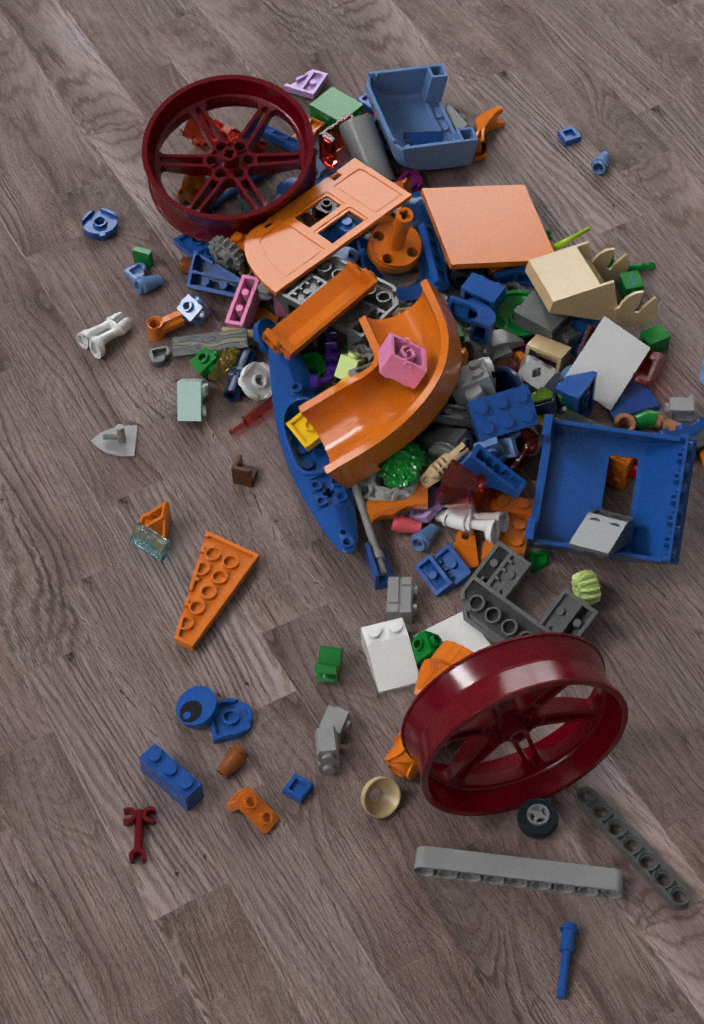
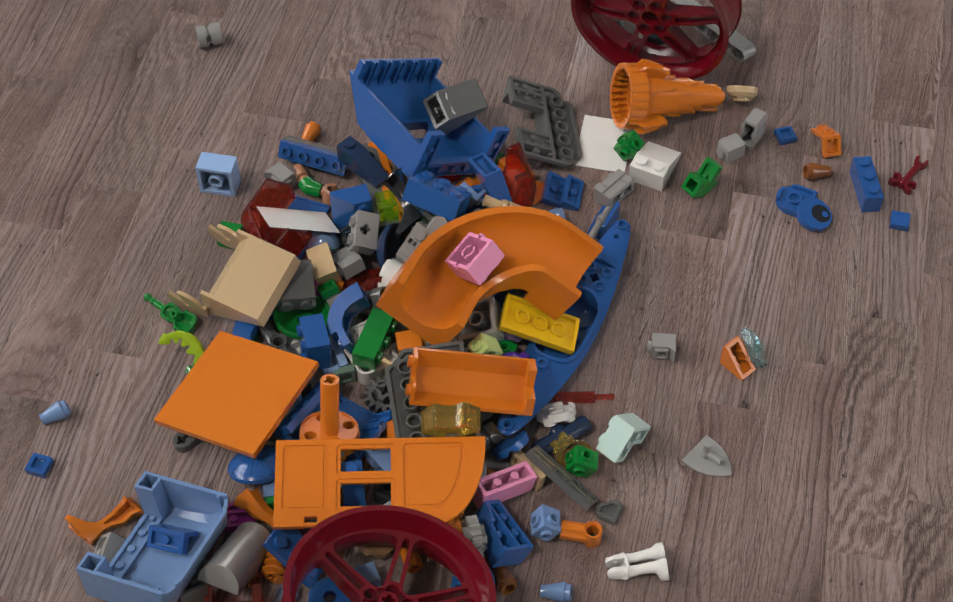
camera: 140 degrees left, 0 degrees up
(112, 768) = (899, 220): none -> blue tile
(214, 582) = (725, 290): orange wing -> none
(225, 490) = (662, 346): none -> light grey window
(242, 473) = (636, 352): reddish brown panel -> none
(307, 278) = (450, 419): none -> clear yellow brick
(520, 340) = (328, 289): none -> green tile
(586, 586) = (491, 115): yellowish green gear -> none
(618, 418) = (360, 161): none -> dark blue slope
(629, 283) = (188, 283): green brick -> none

